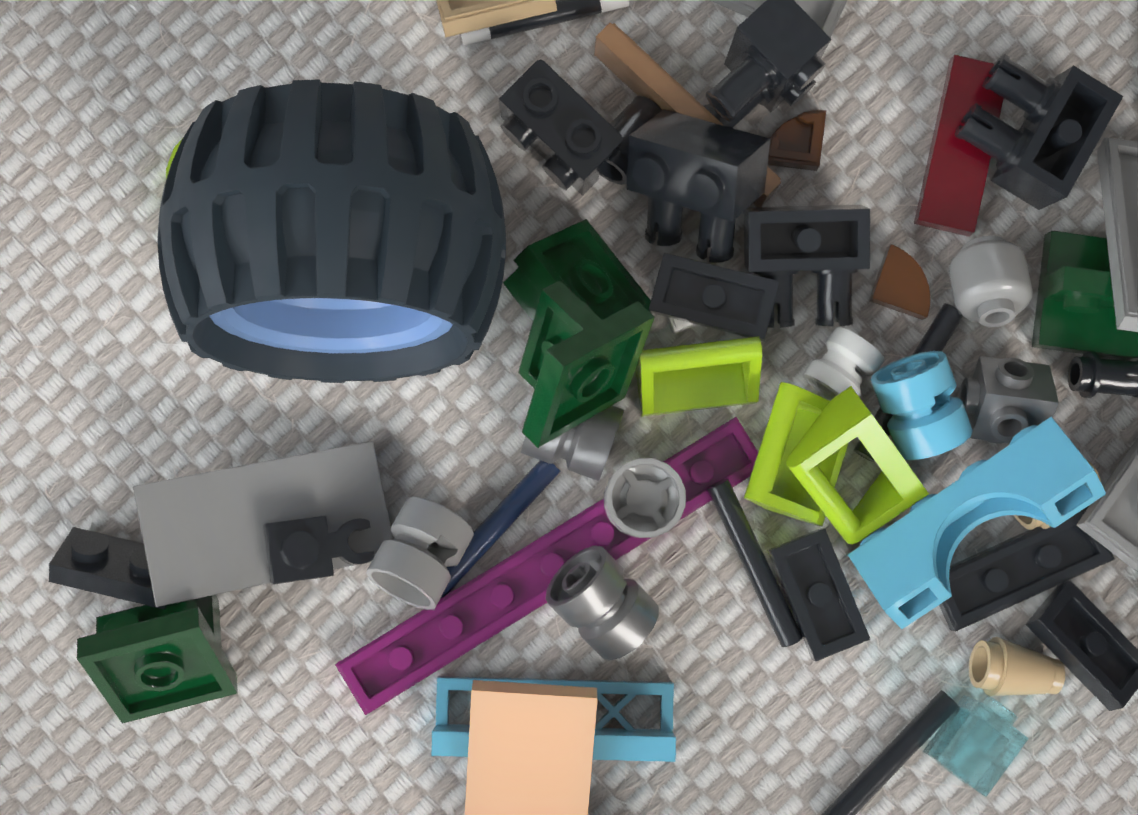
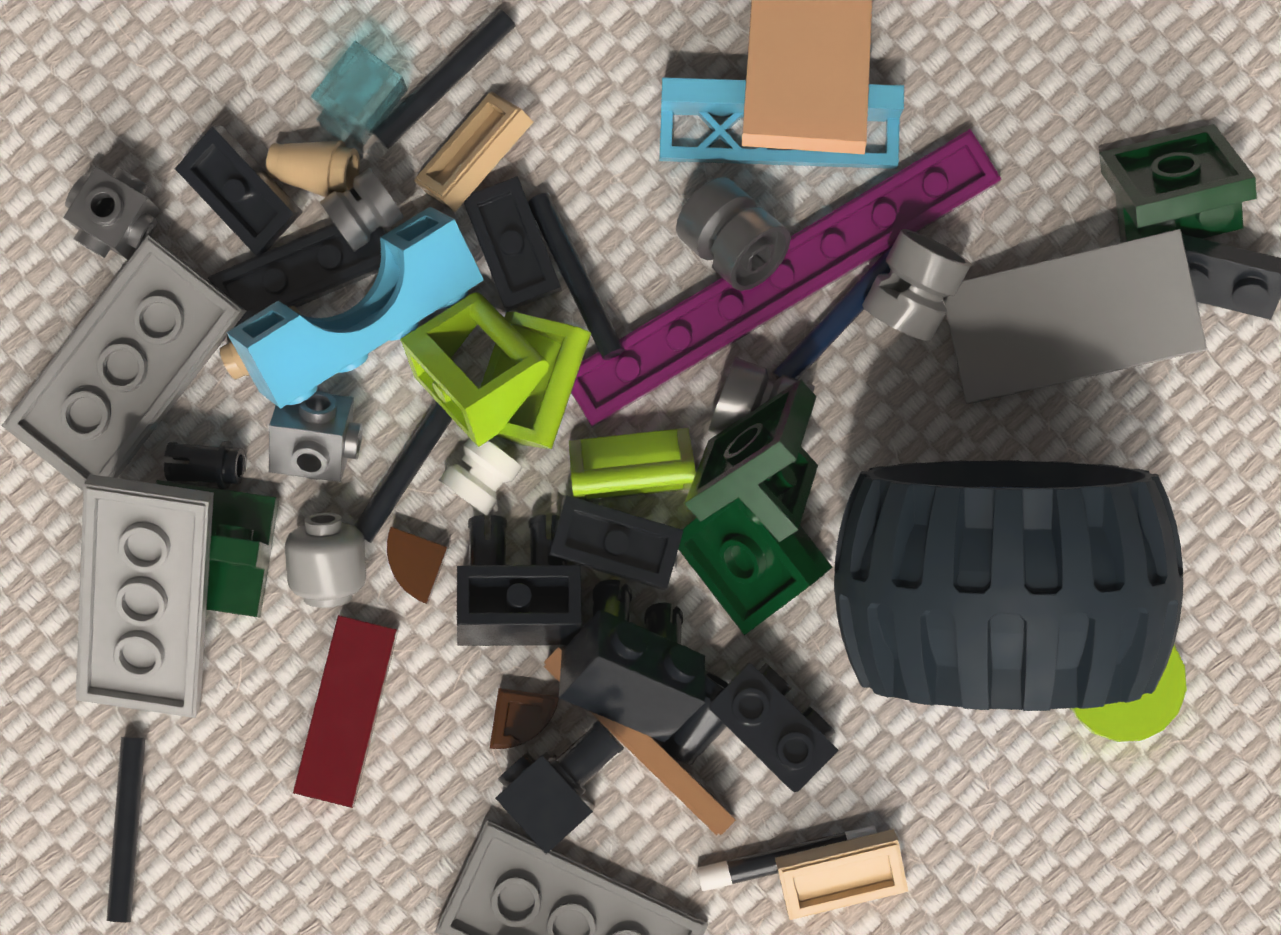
camera: 175 degrees left, 0 degrees up
(305, 548) = (1032, 289): black plate -> none
(644, 498) = (691, 334): light grey wheel -> none
(859, 686) = (473, 151): none -> tan tile
(924, 412) = (405, 428): medium azure wheel -> none
(972, 623) = (362, 209): none -> flat silver wheel
(1058, 132) = (252, 710): black brick -> none

